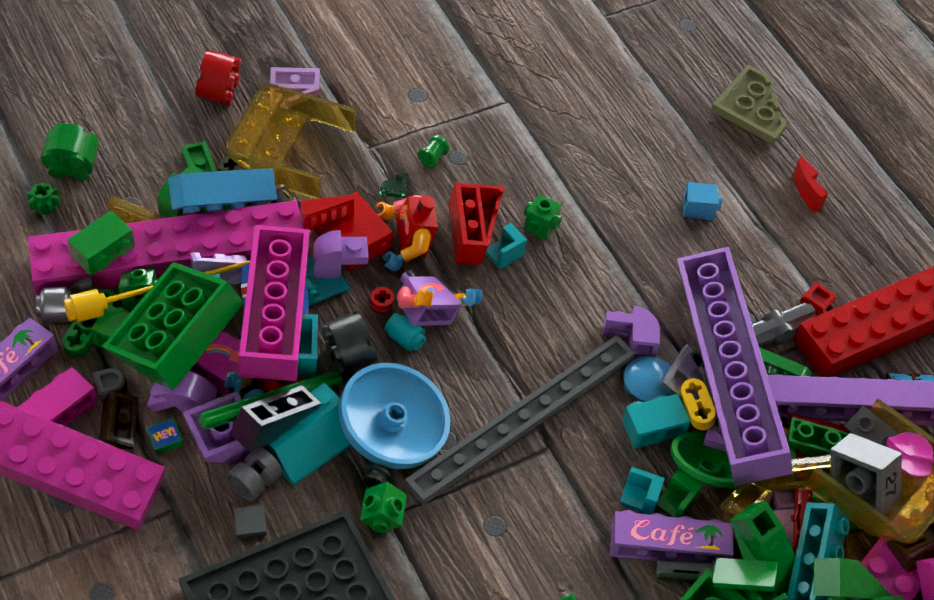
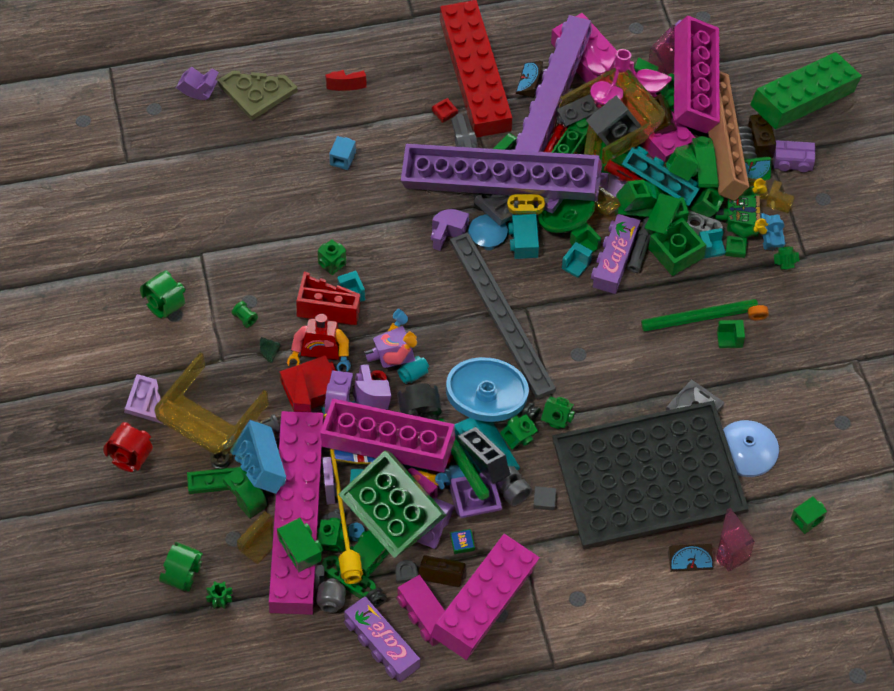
camera: 70 degrees left, 5 degrees up
(62, 354) = (376, 597): none -> pearl dark grey bush
(339, 455) = (519, 431): none -> green brick
(357, 290) = (371, 392): none -> medium lavender brick
(429, 68) = (163, 294): none -> green brick
(734, 47) = (196, 84): none -> medium lavender brick

